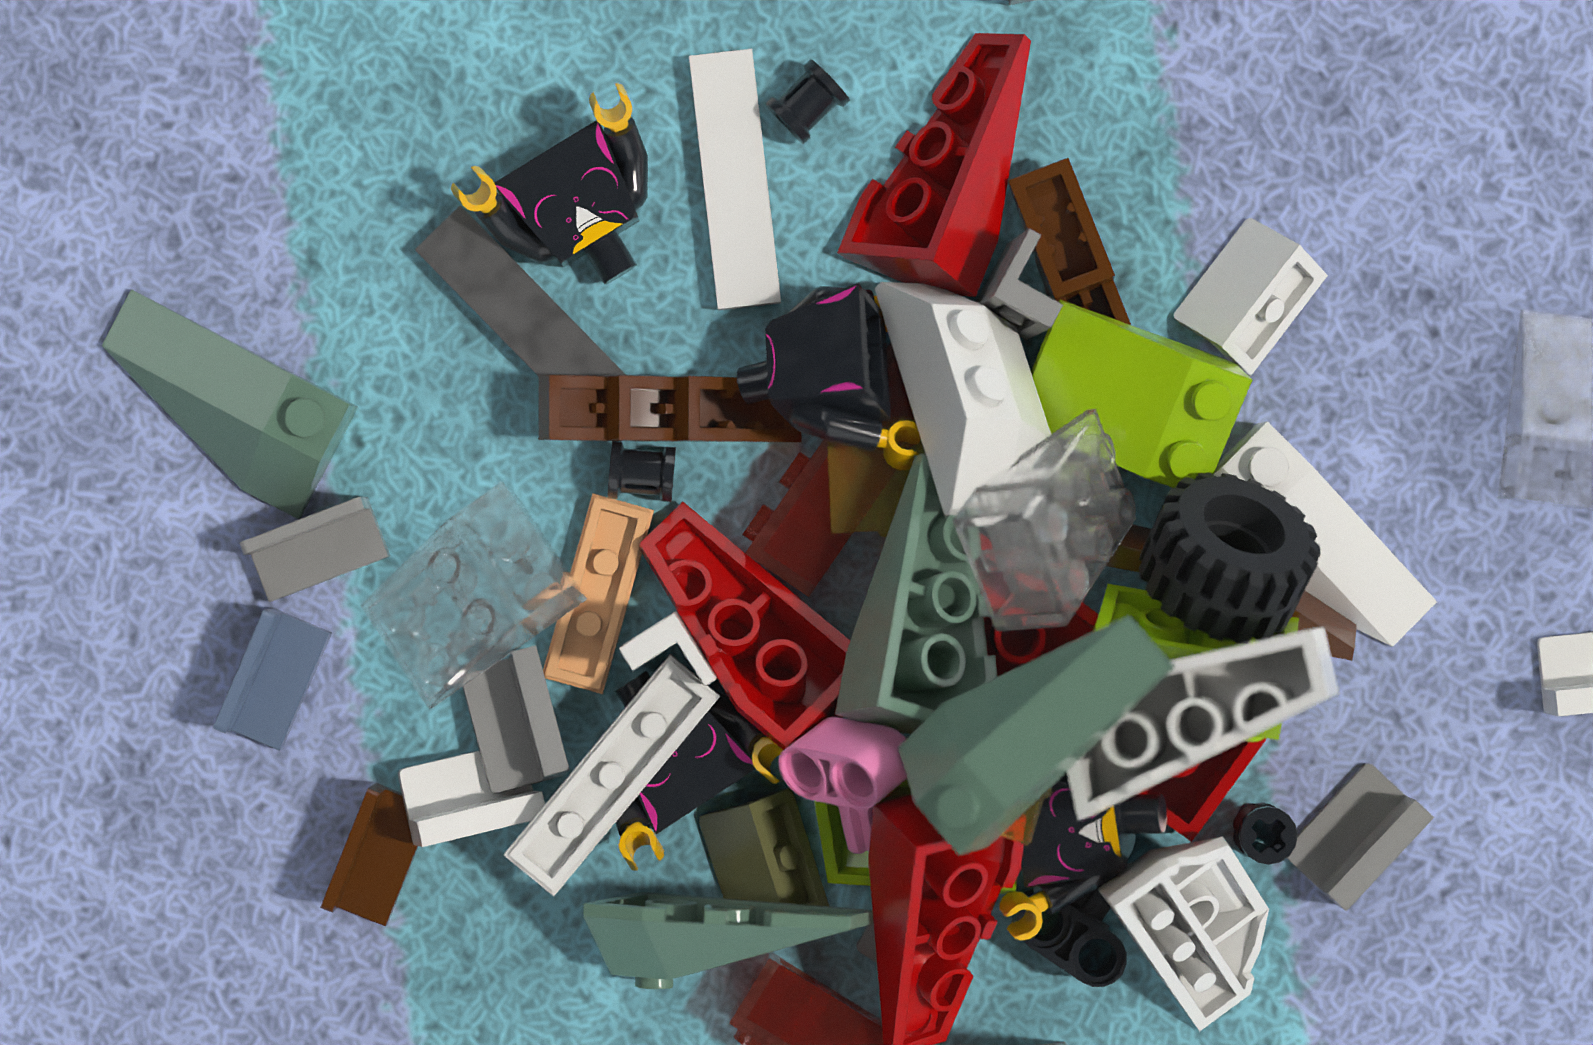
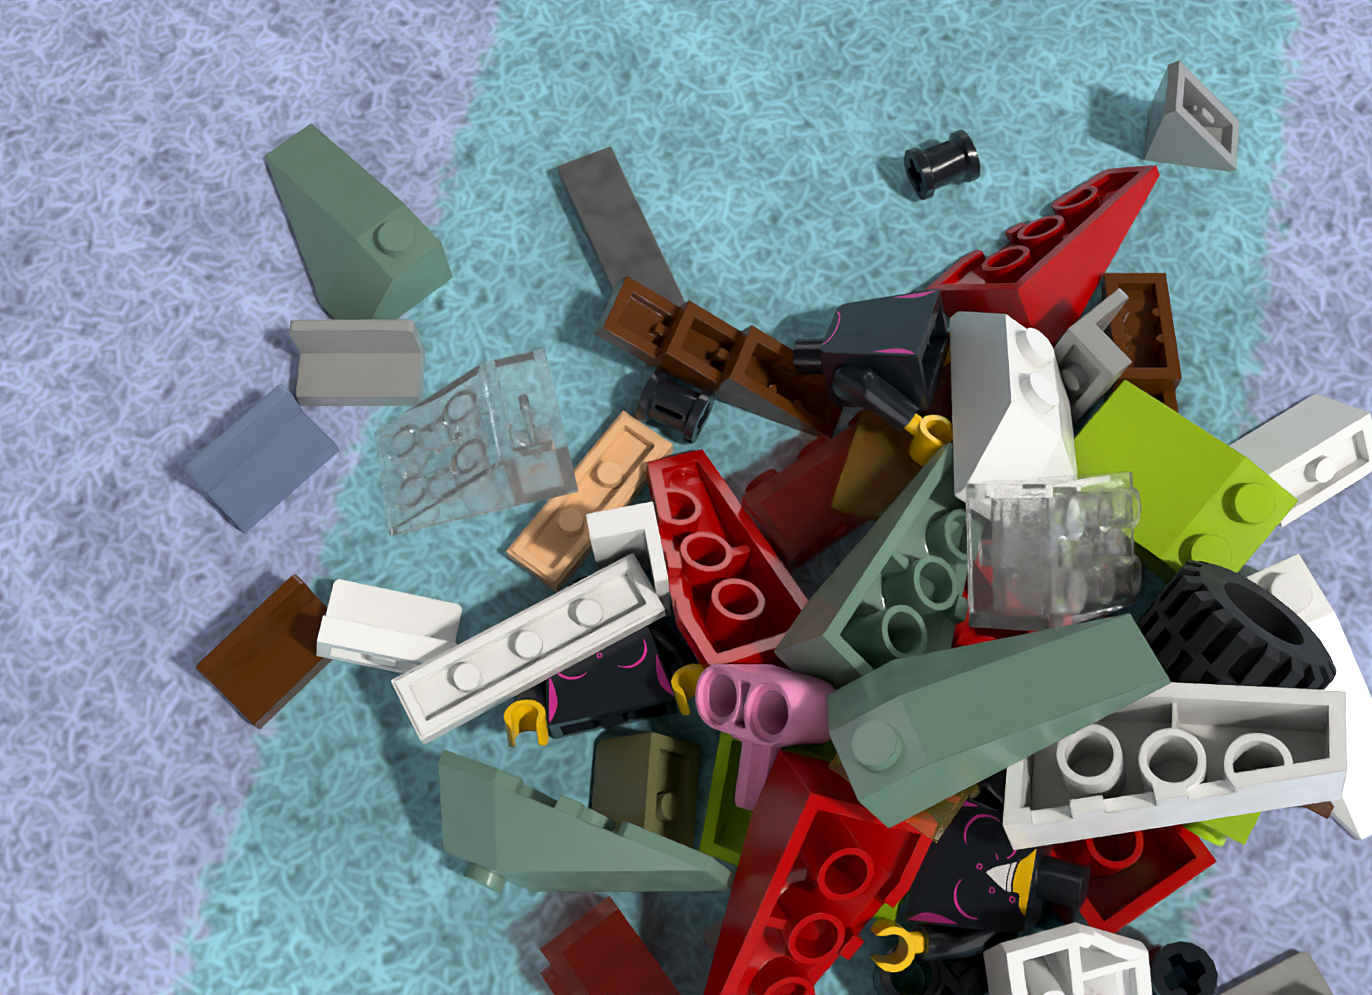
camera: 20 degrees right, 20 degrees down
(515, 723) = (462, 577): light grey panel -> none
(572, 195) = (708, 164): black torso -> none
(735, 179) = (853, 208): white tile -> none

